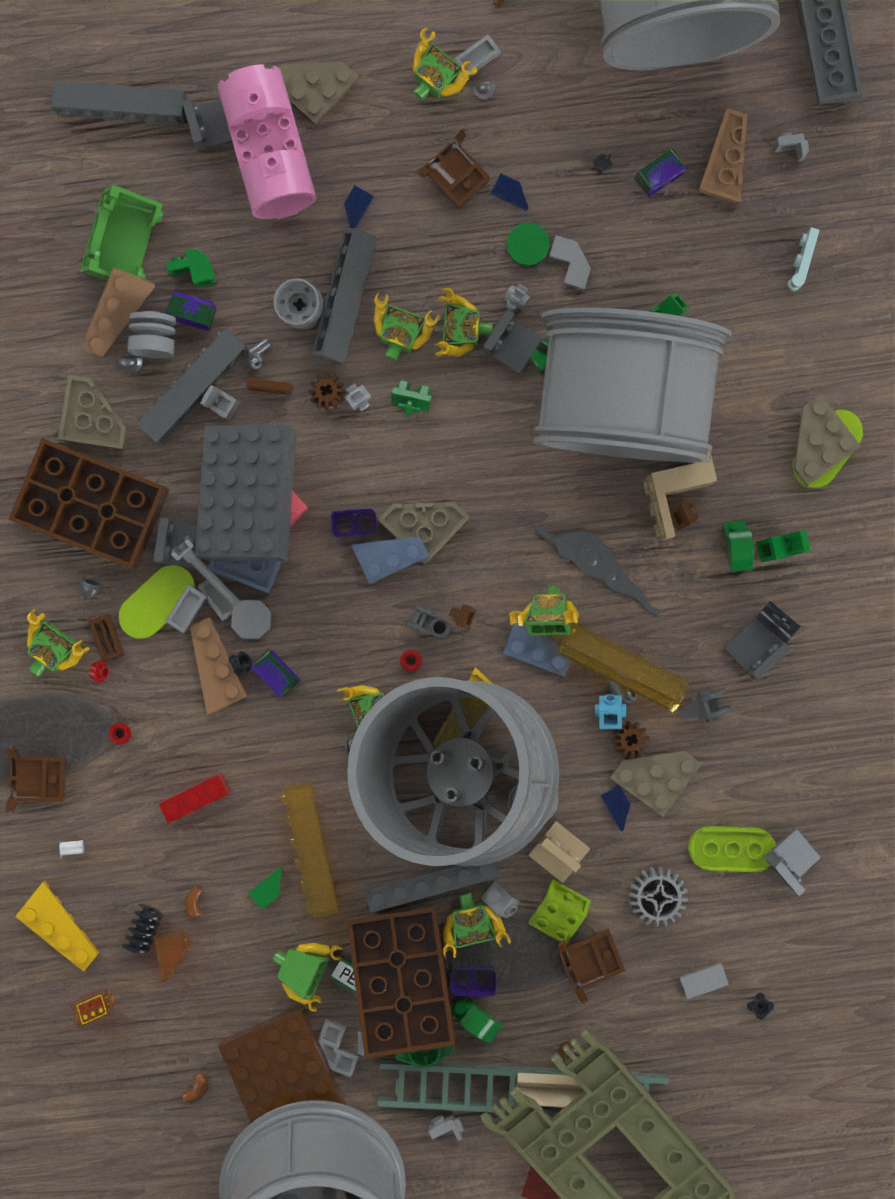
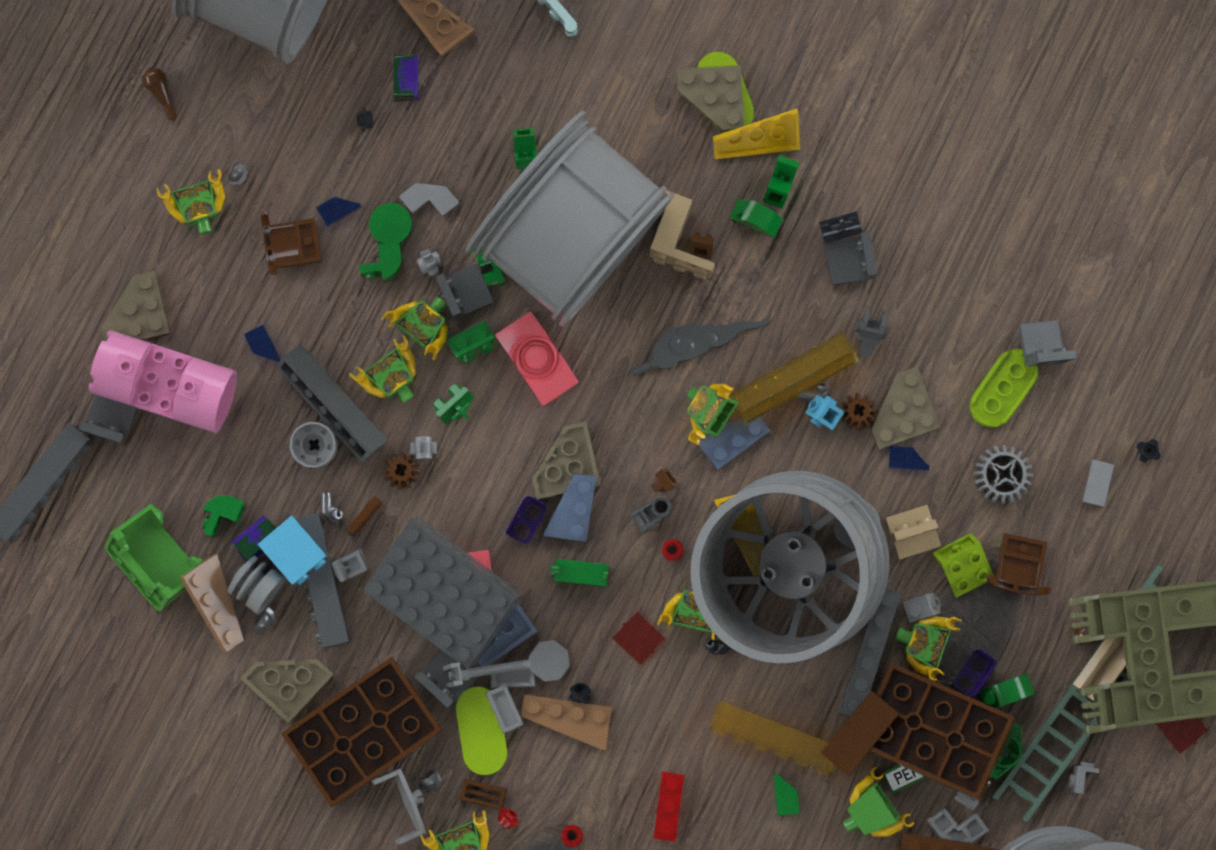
camera: 55 degrees left, 5 degrees down
(61, 581) = (410, 801): none -> light grey piece
(197, 345) = (293, 551): none -> medium azure brick
(275, 673) = (608, 669): dark purple piece -> none
(319, 680) = (638, 638): none -> clear red piece
(340, 596) = (580, 573): none -> green brick
(358, 919) = (860, 733): none -> reddish brown piece
(473, 378) = (472, 342): none -> green bracket
(479, 53) = (204, 160): light grey tile -> none
(491, 266) = (389, 265): none -> green brick
(496, 441) = (536, 358): none -> coral slope
(811, 505) = (762, 137): none -> yellow wing

